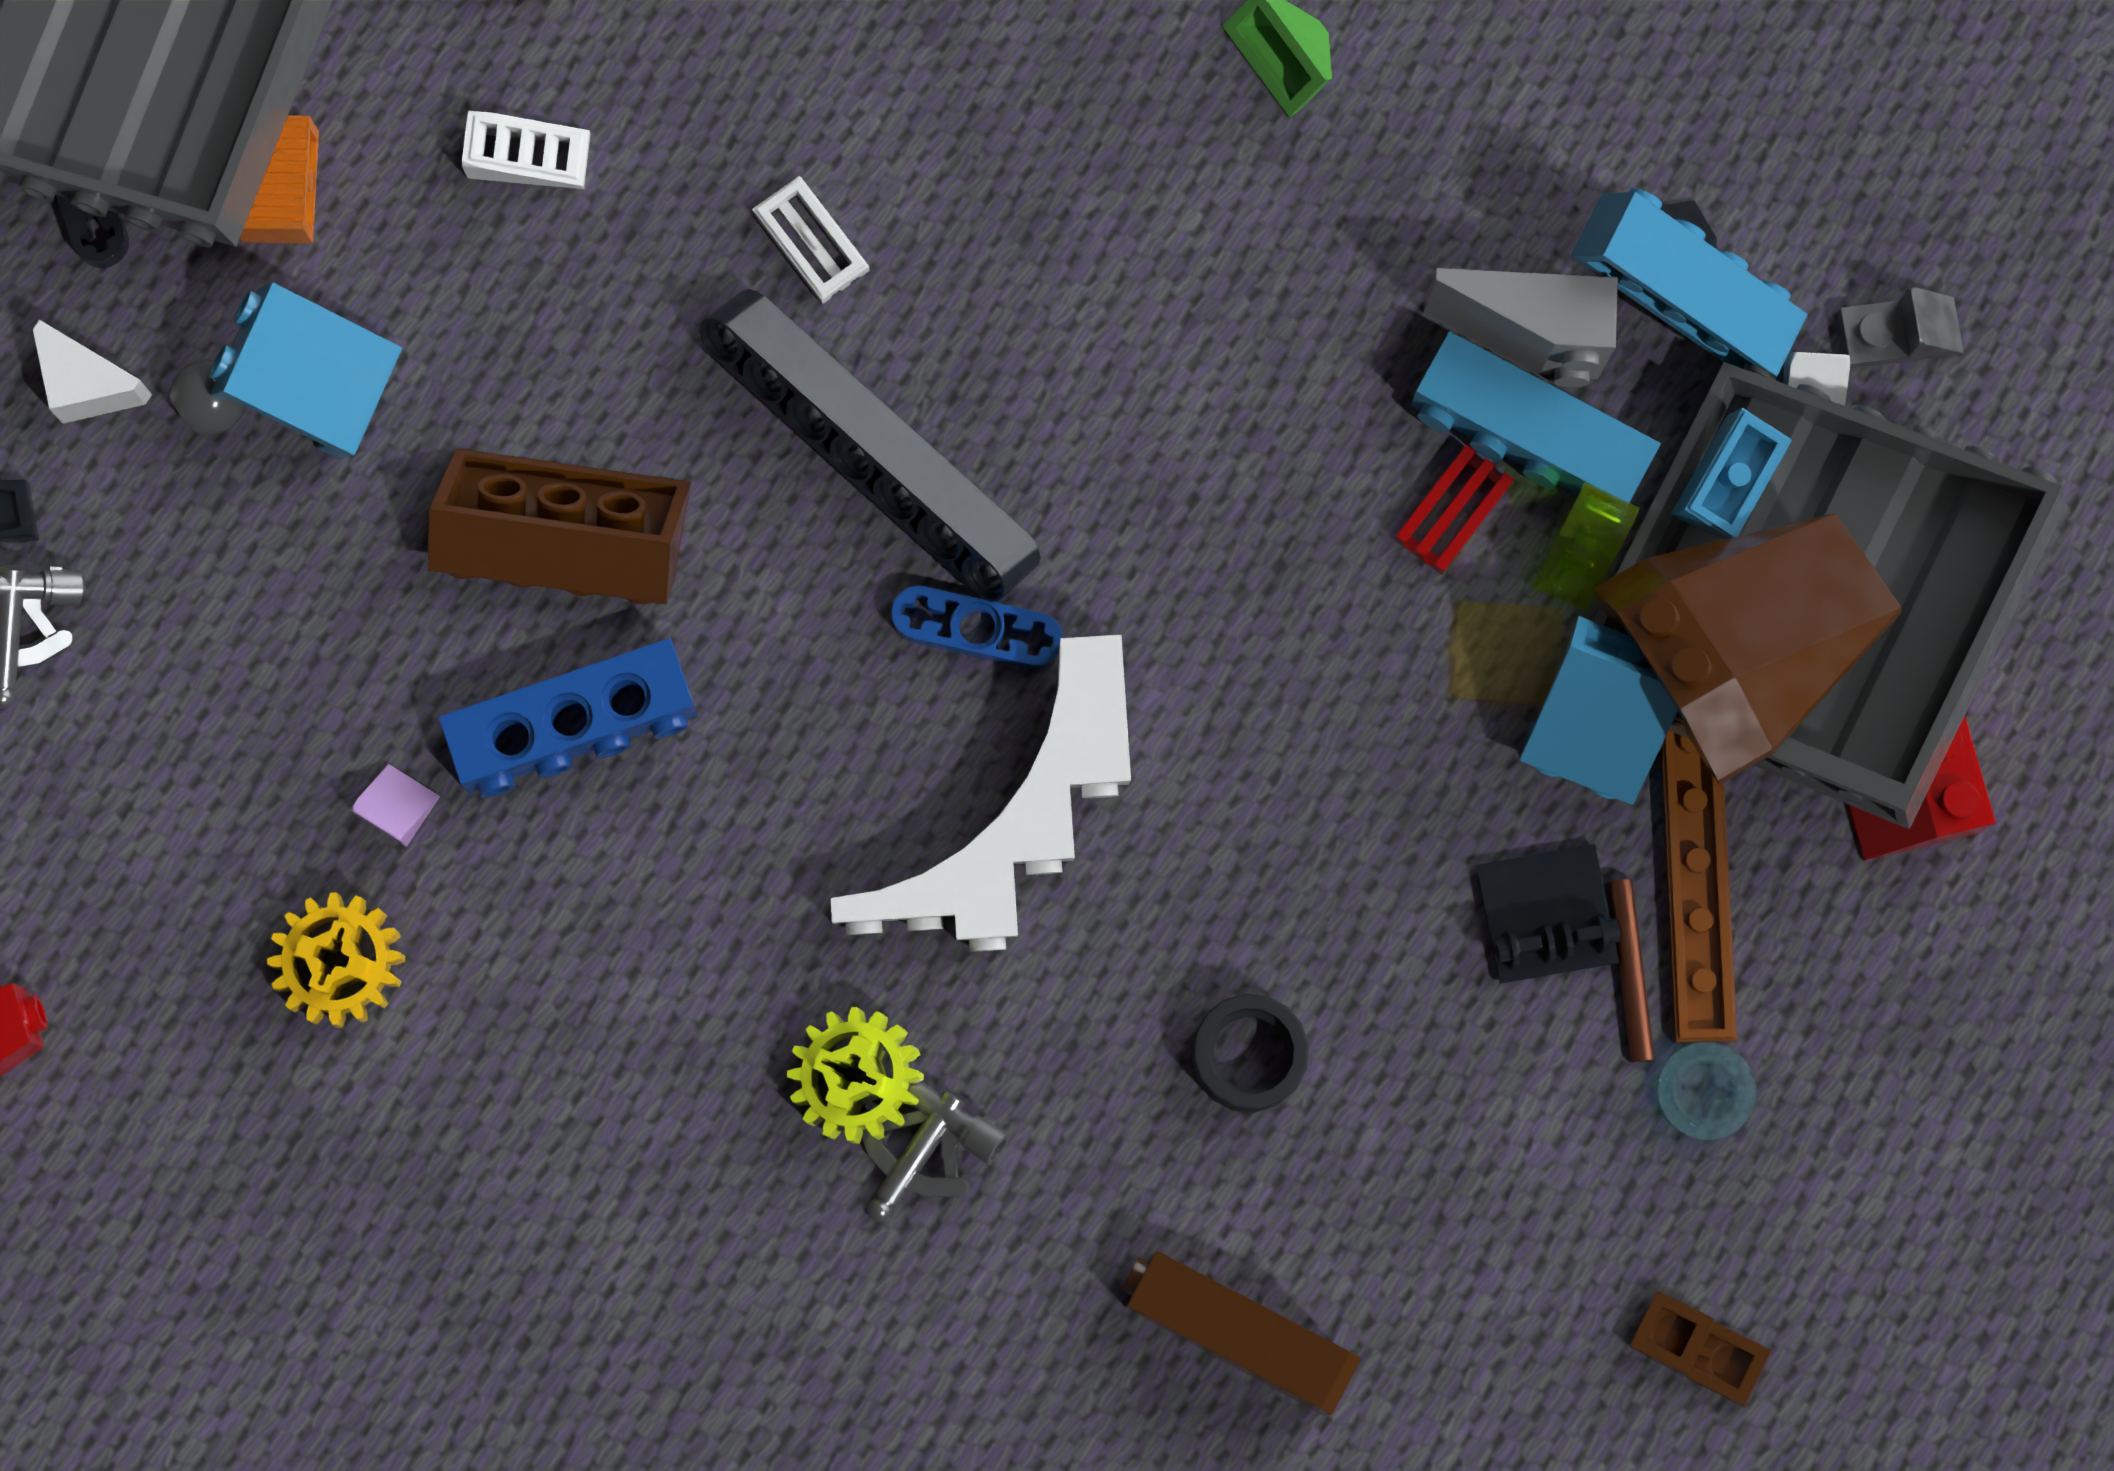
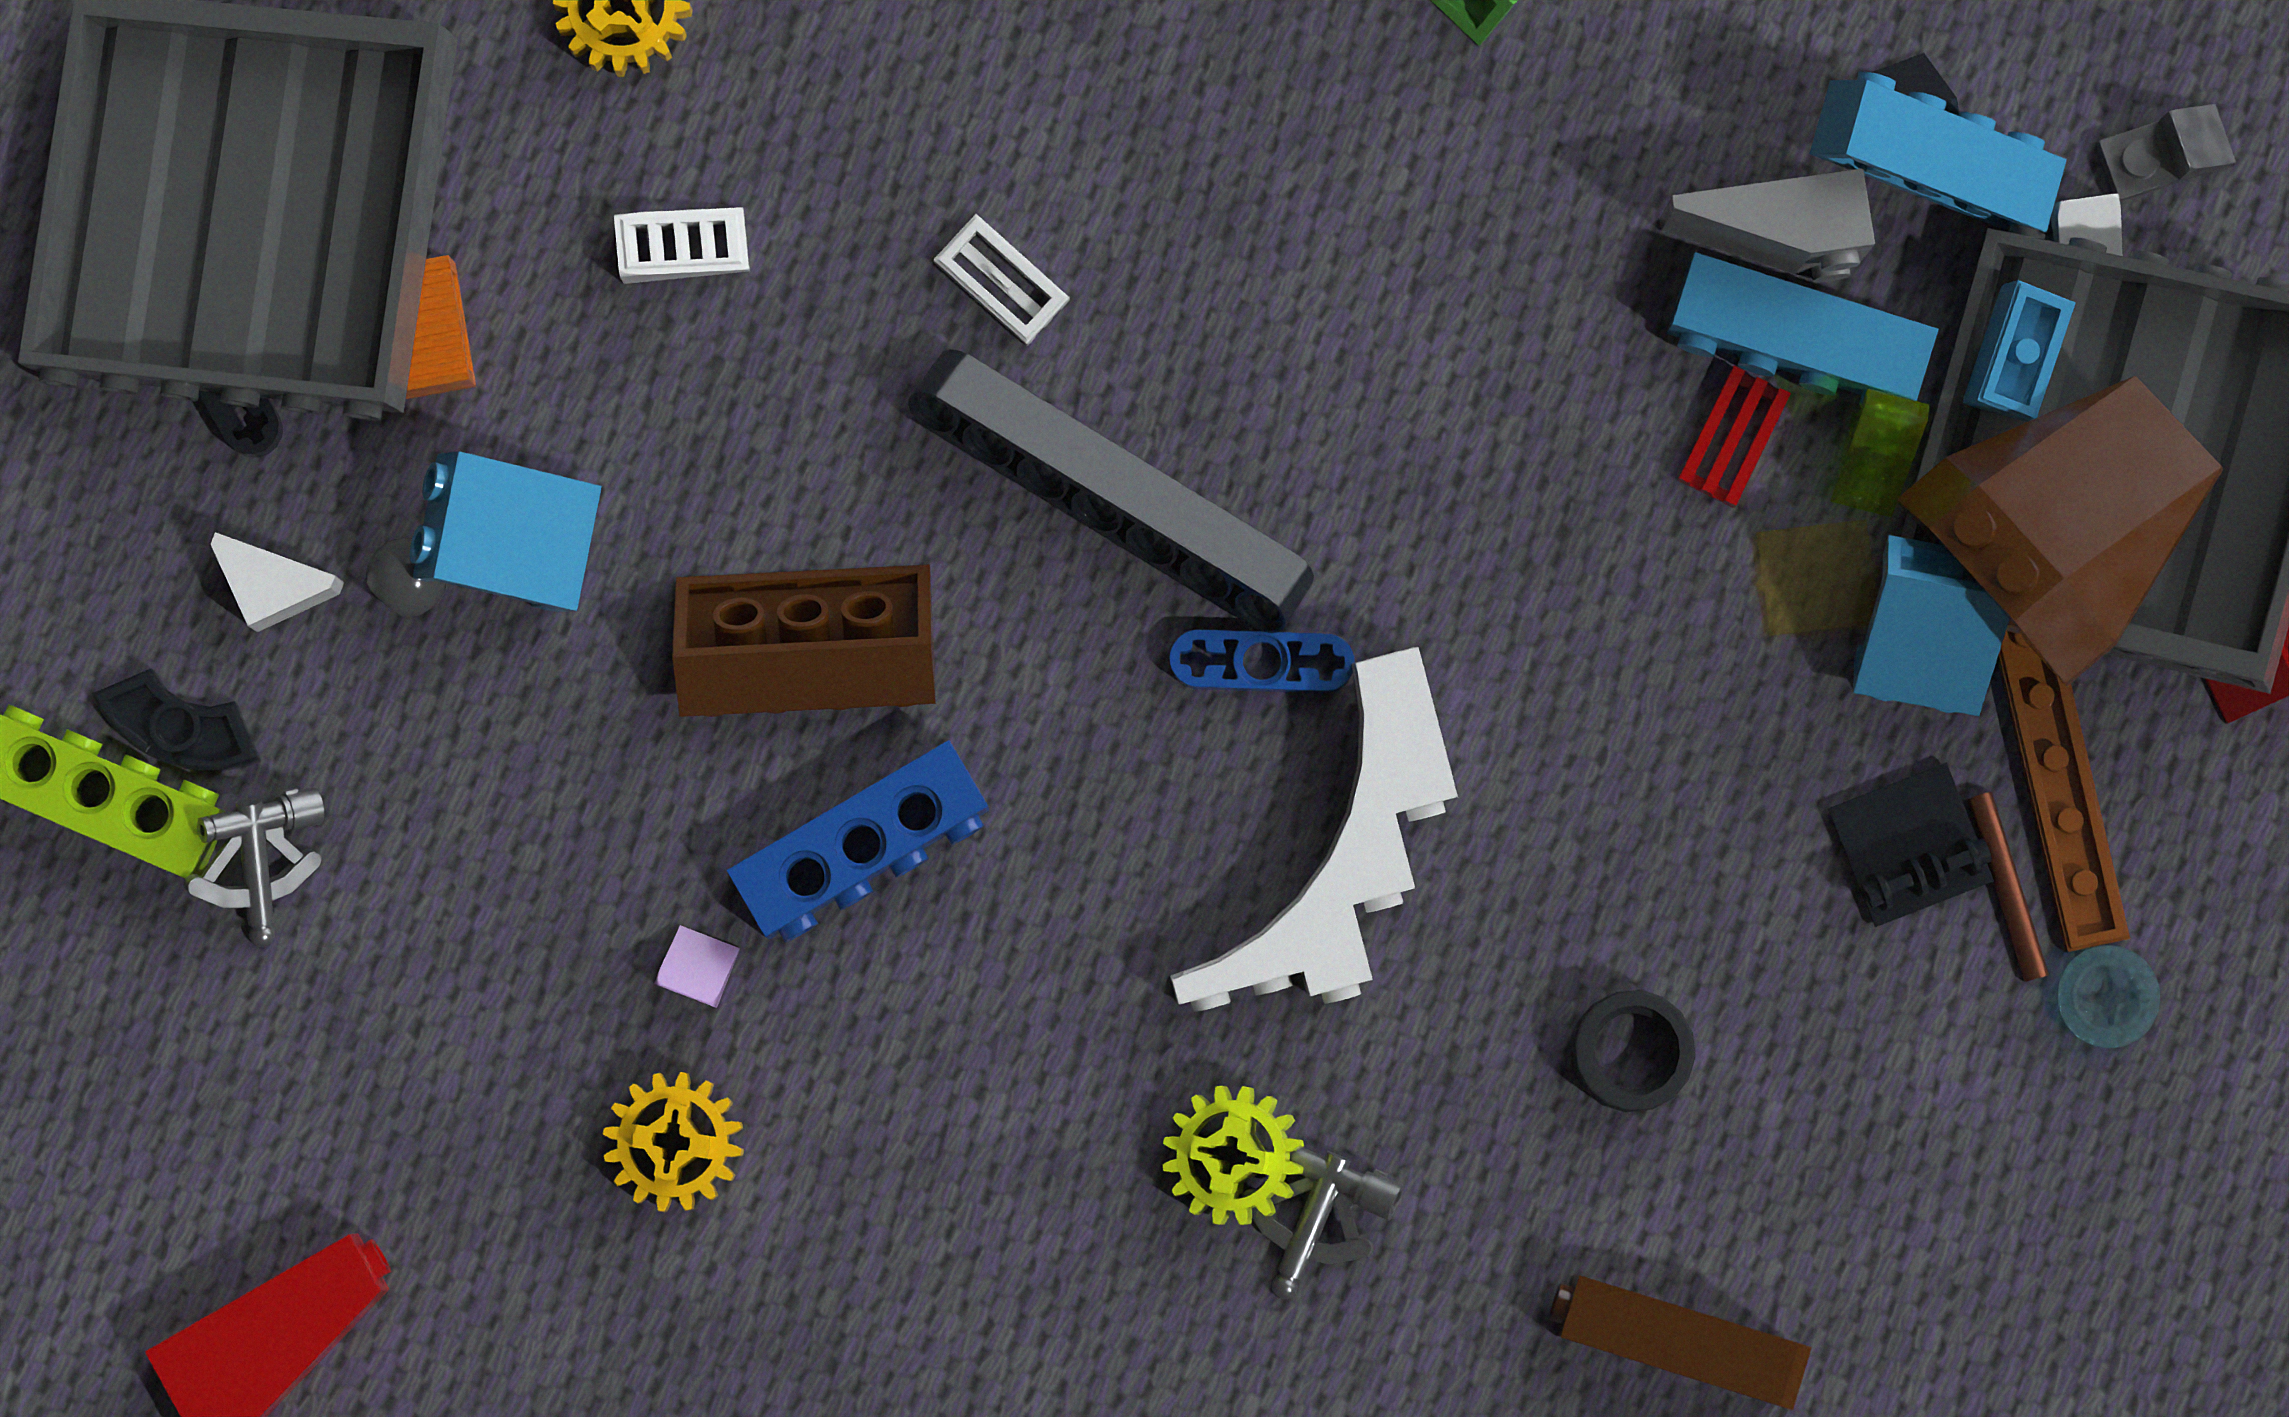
camera: 10 degrees left, 5 degrees up
(1700, 1349) = (2150, 1262): reddish brown slope -> none

